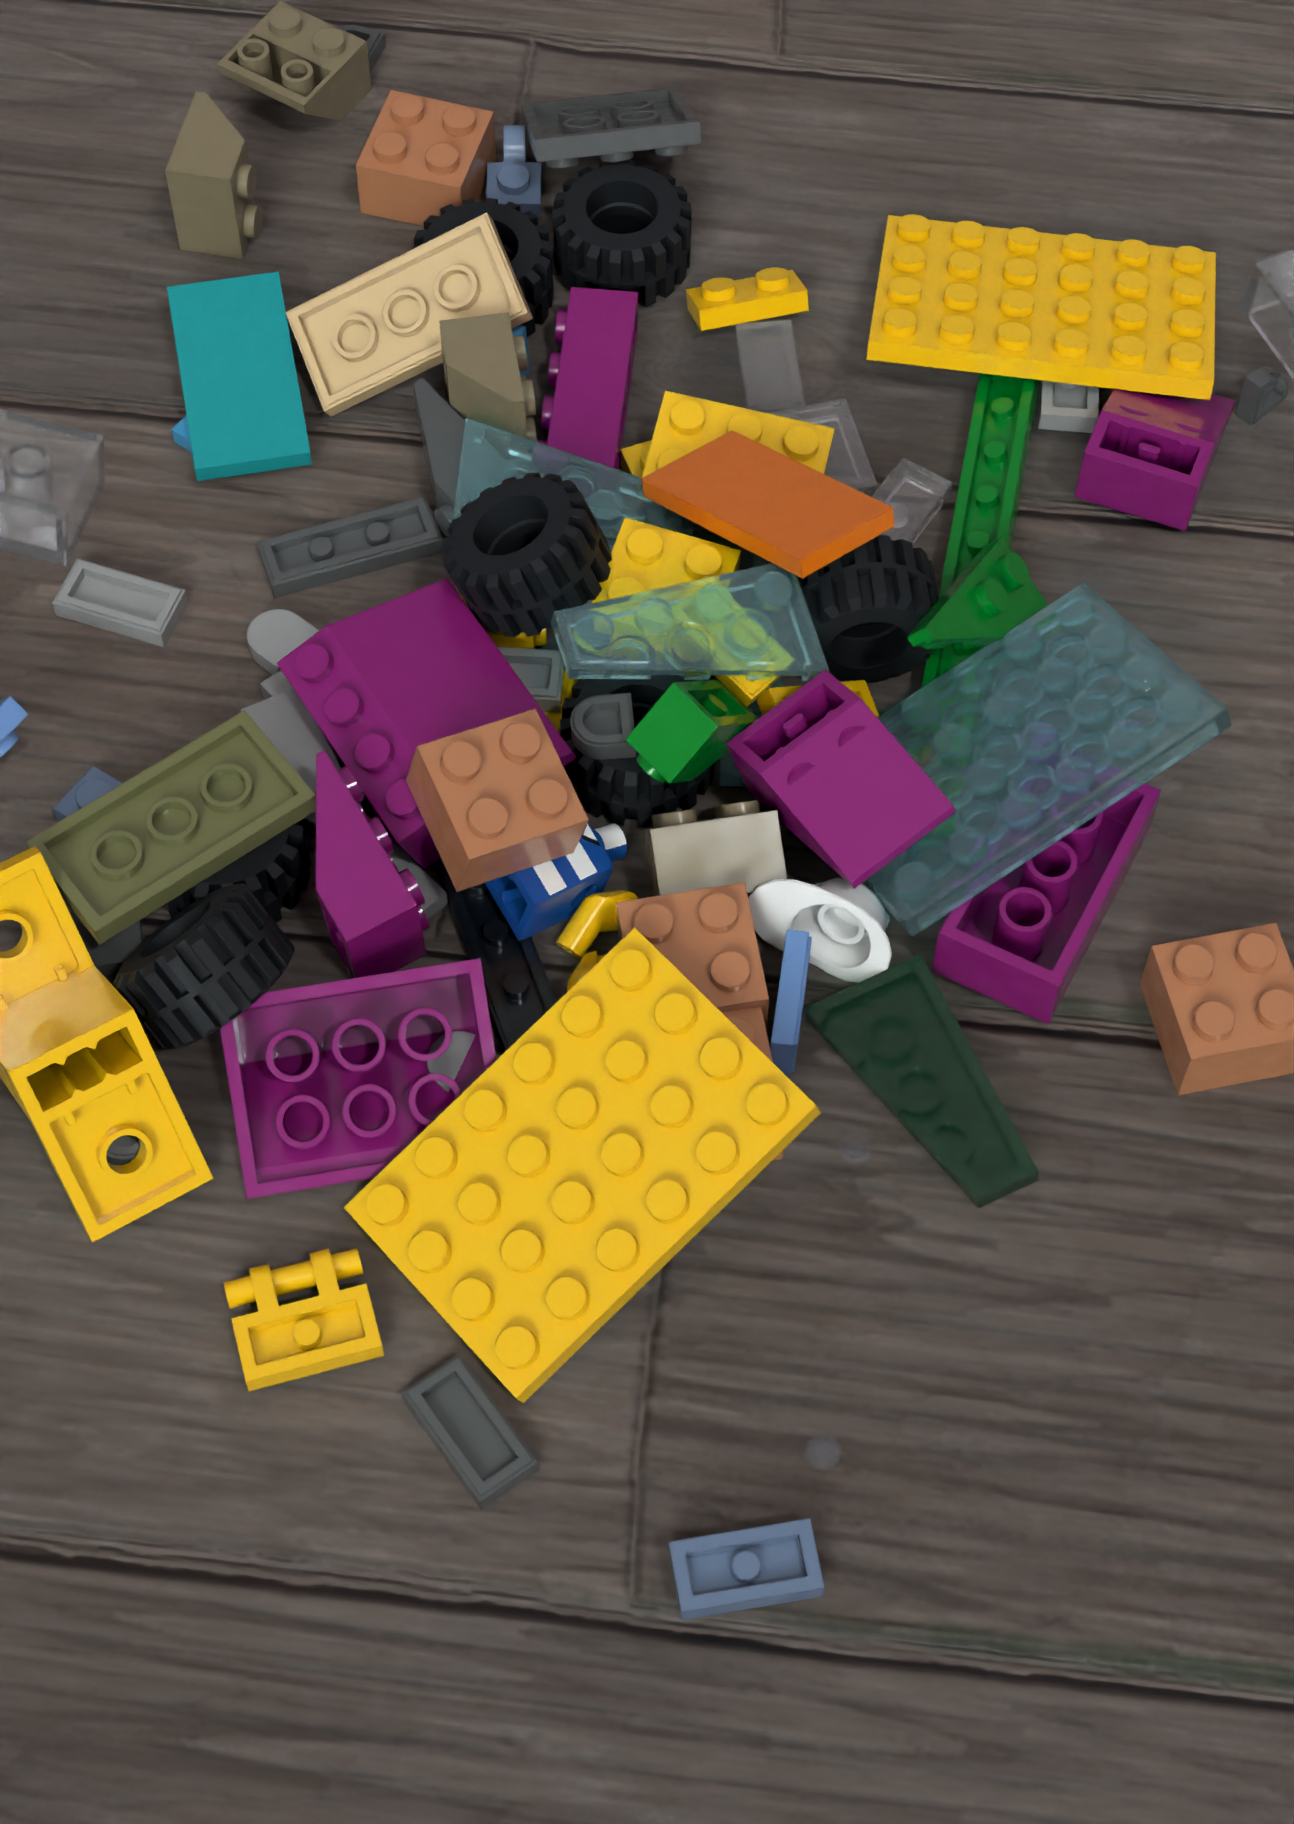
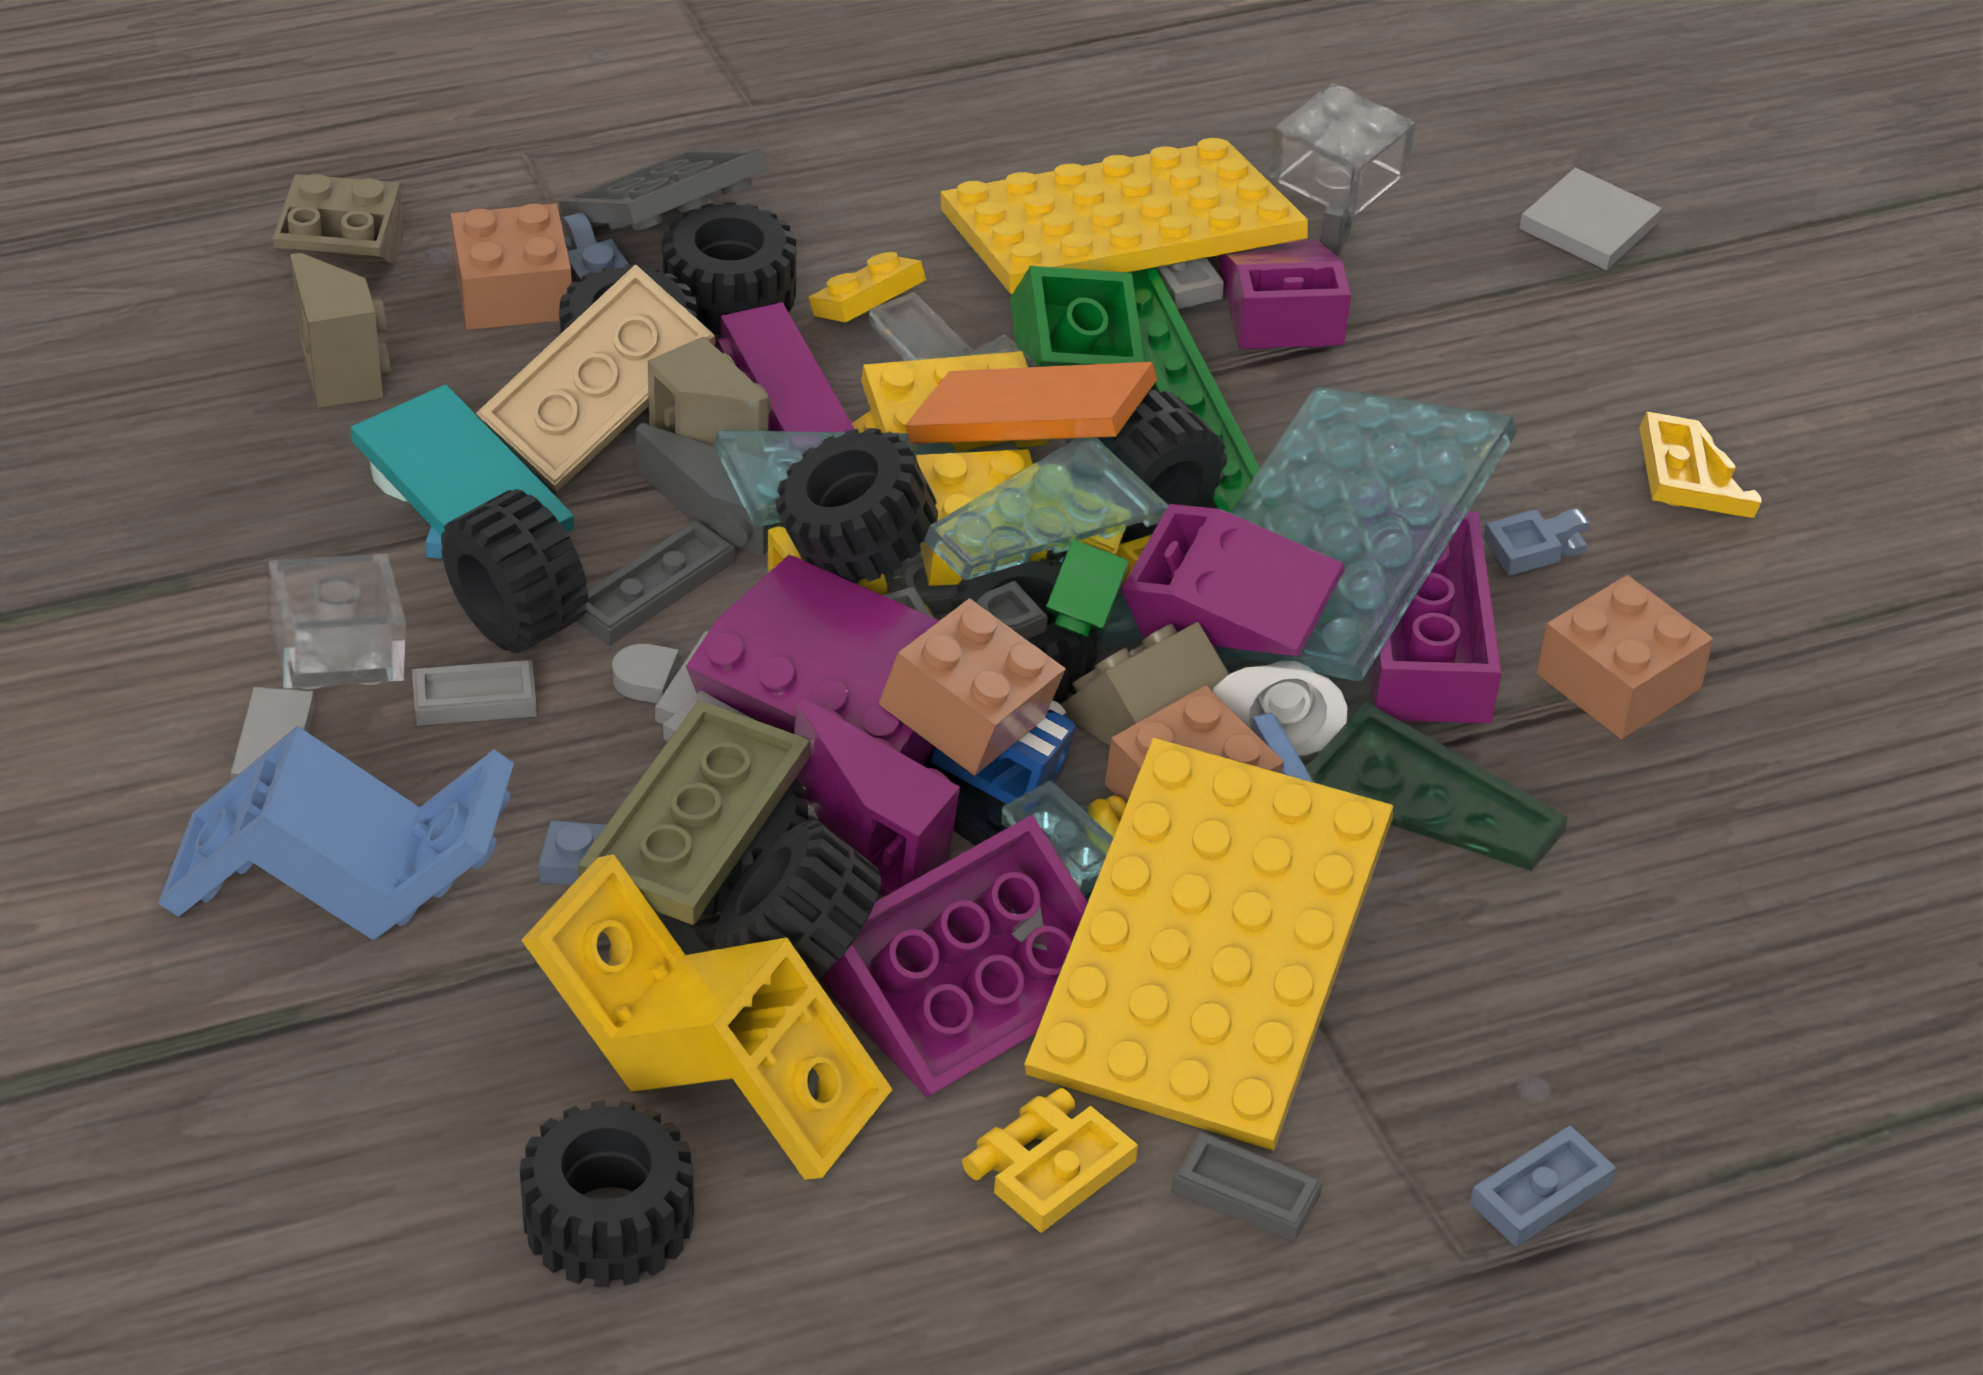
camera: 30 degrees left, 15 degrees down
(199, 497) = (514, 570): none -> black tyre
(521, 975) = (1070, 830): none -> clear light blue plate
(594, 915) = (1082, 771): yellow arm -> none
(911, 416) = (1076, 317): none -> green slope
(982, 602) = (1242, 424): green wing -> none
(1222, 834) = (1531, 542): none -> sand blue plate

